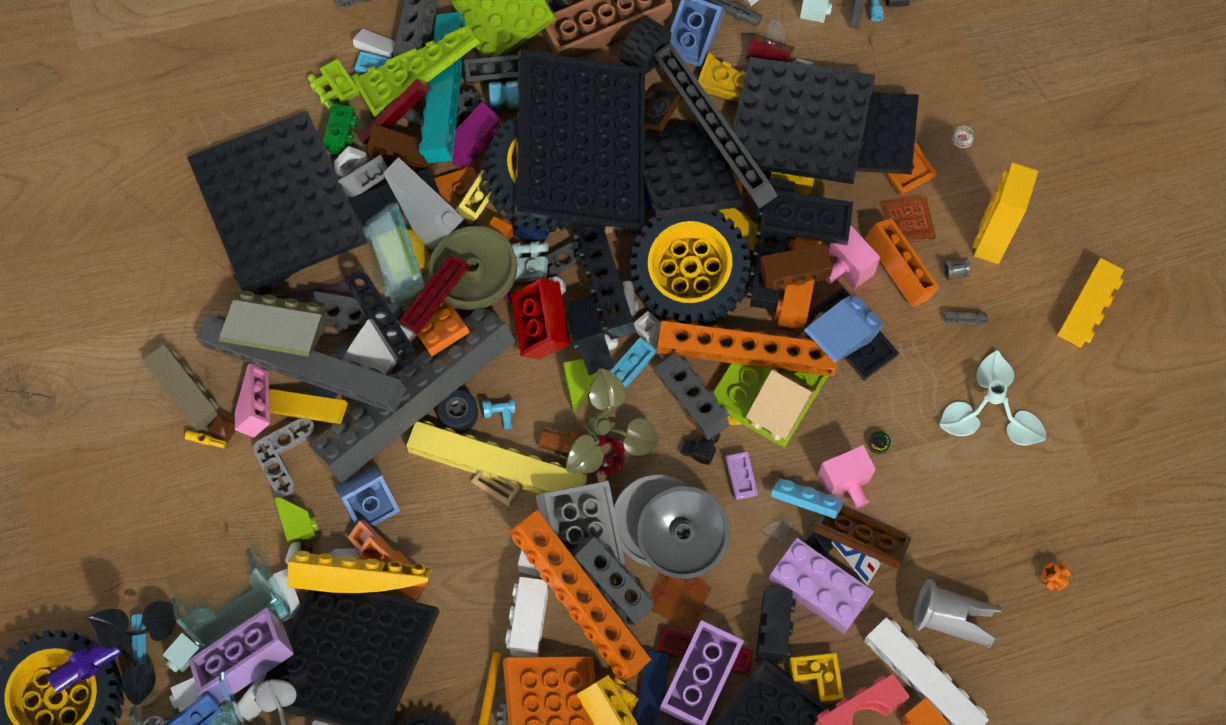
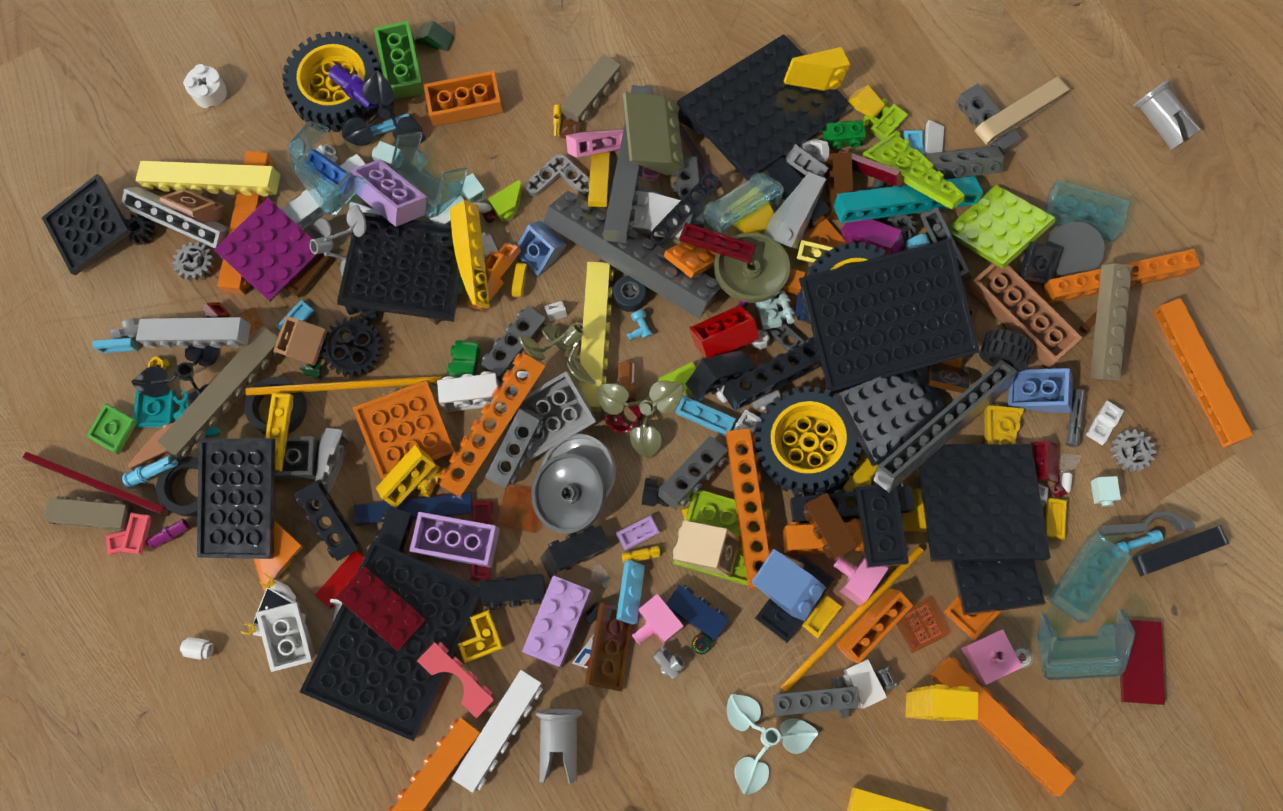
camera: 80 degrees right, 5 degrees up
(32, 561) = (434, 36): none -> dark green slope
(52, 606) = (399, 59): none -> bright green brick
(139, 540) = (463, 98): none -> orange brick
(259, 126) = (818, 70): none -> yellow slope
(269, 556) = (473, 190): none -> light aqua brick
(306, 95) = (866, 101): none -> yellow slope
(400, 531) = (519, 280): none -> yellow beam
(450, 500) = (555, 311): none -> white slope
(460, 526) = (525, 317): none -> dark grey brick
(483, 619) = (464, 359): none -> green brick
(503, 480) = (562, 341): none -> olive plant
(747, 548) = (574, 550): none -> black wedge
(766, 479) = (642, 554): none -> yellow axle
(800, 42) = (1064, 487): none -> arm
(825, 58) = (1055, 518): none -> yellow tile
(845, 434) = (697, 612): none -> dark blue brick
(878, 307) = (821, 616): none -> yellow tile
(895, 479) = (670, 665): none -> light grey plate
(900, 49) = (1088, 578): none -> clear light blue brick
(907, 315) = (850, 621): none -> light orange piece
(958, 163) = (991, 657): none -> bright pink brick
(959, 291) = (868, 685): none -> white brick
(968, 338) = (816, 701): none -> dark grey brick
(975, 76) = (1085, 656): none -> clear light blue windscreen
(991, 33) = (1144, 671): none -> dark red tile
(1049, 162) = (1008, 730): none -> orange brick

